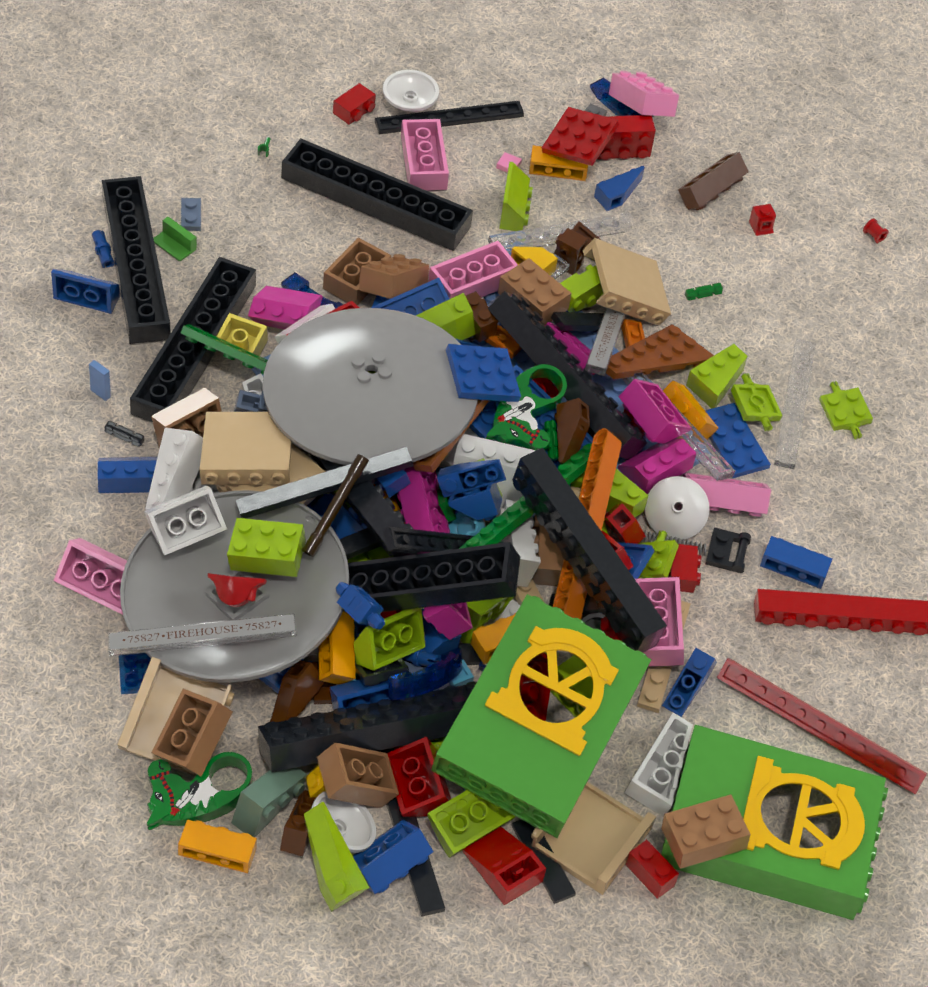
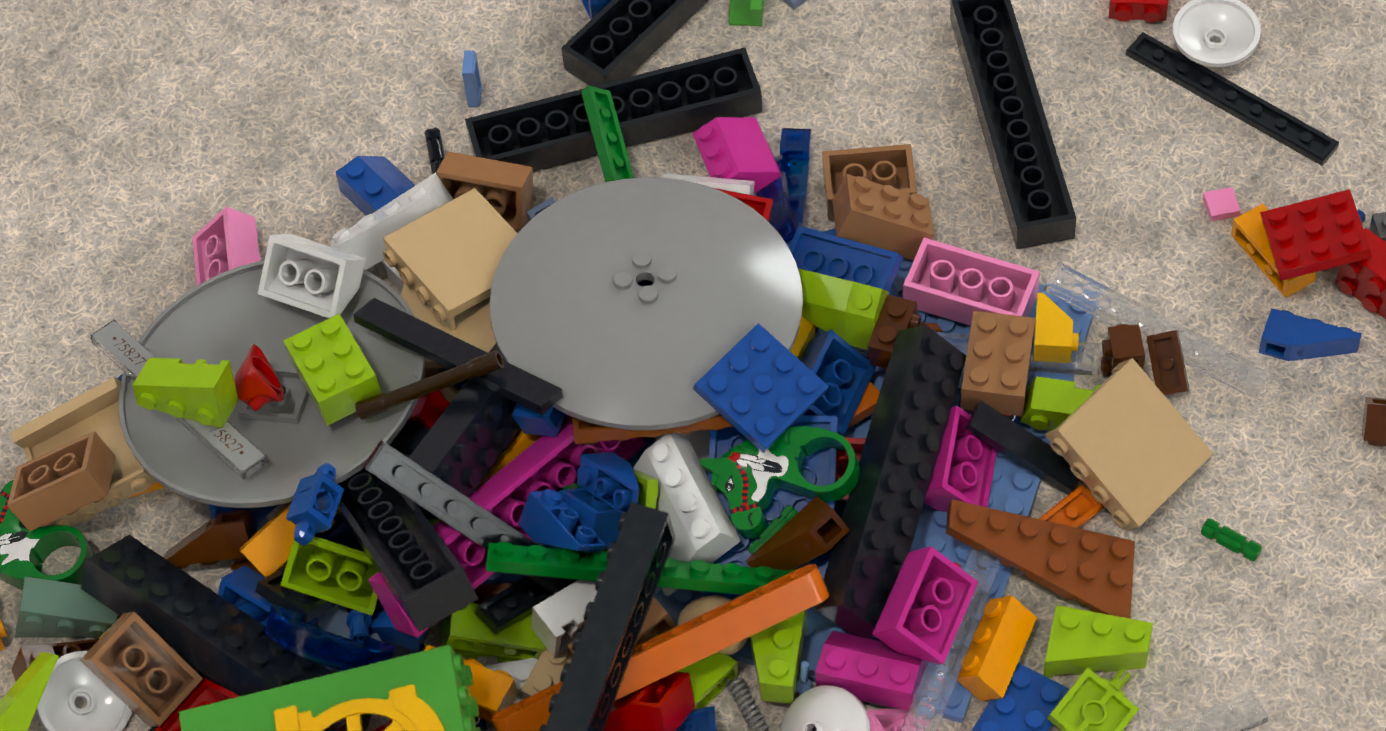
camera: 65 degrees right, 5 degrees up
(216, 618) = (187, 390): none -> lime wedge
(244, 333) = (655, 149): light yellow slope -> none
(424, 154) = (1127, 115): bright pink brick -> none
(470, 517) = (554, 522): none -> blue slope
(515, 199) = (1153, 245): lime slope -> none
(605, 342) = (991, 485): light grey tile -> none
(624, 524) = (732, 695): red slope -> none

